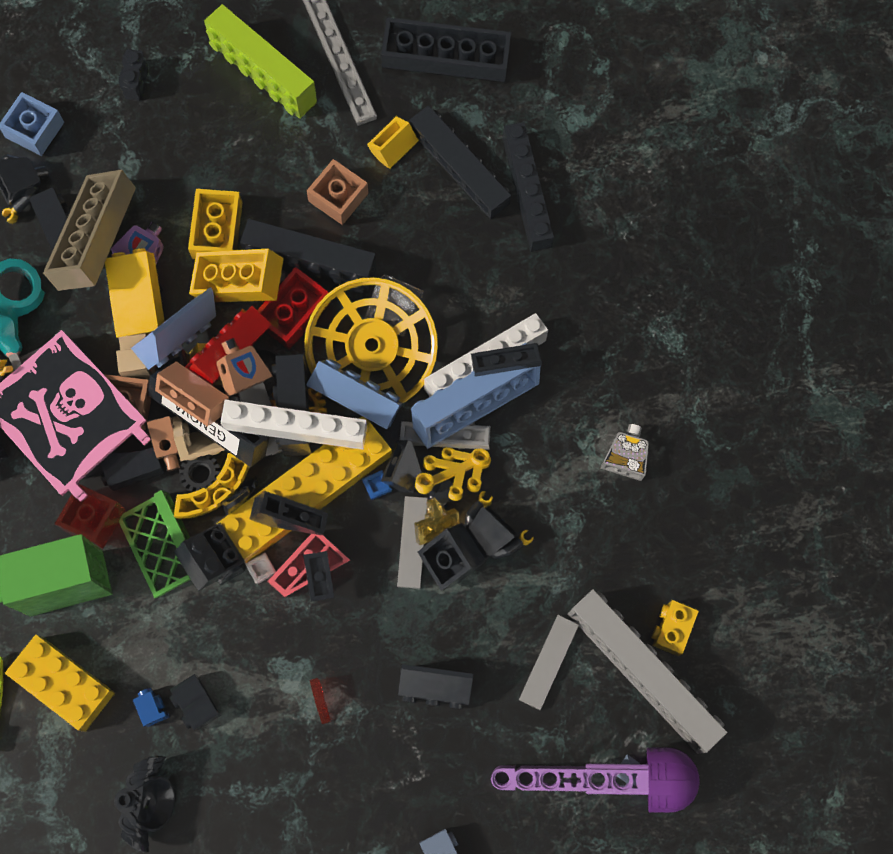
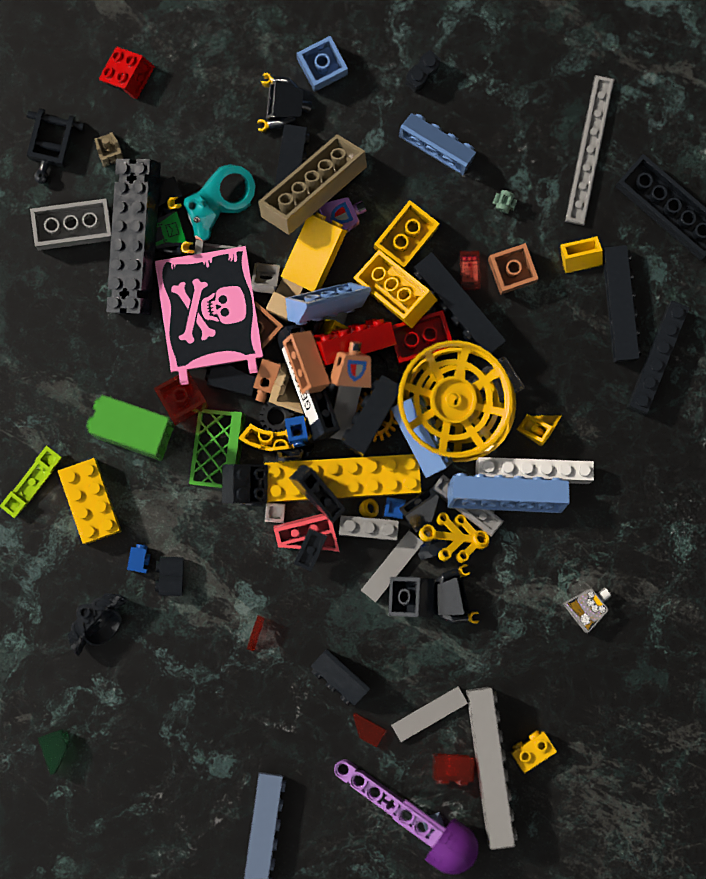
camera: 30 degrees right, 10 degrees up
(101, 349) = (265, 285): none -> light grey piece
(189, 128) = (437, 143): none -> medium blue slope
(222, 464) = (296, 424): none -> blue brick
(260, 61) = (524, 125): lime brick -> none
(289, 139) = (505, 201): none -> sand green gear
(294, 424) = (362, 436): white brick -> none
(297, 219) = (470, 270): none -> clear red tile
(349, 507) = (364, 510): none -> yellow piece
(353, 524) = (368, 528): none -> light grey arch
(368, 324) = (466, 398): none -> yellow dish
(435, 522) = (417, 566): clear yellow hinge -> none
(462, 321) = (538, 427): none -> yellow slope
(500, 721) = (368, 731): none -> clear red tile
(506, 359) = (545, 485): black tile -> none
(609, 698) = (452, 768): none -> clear red brick

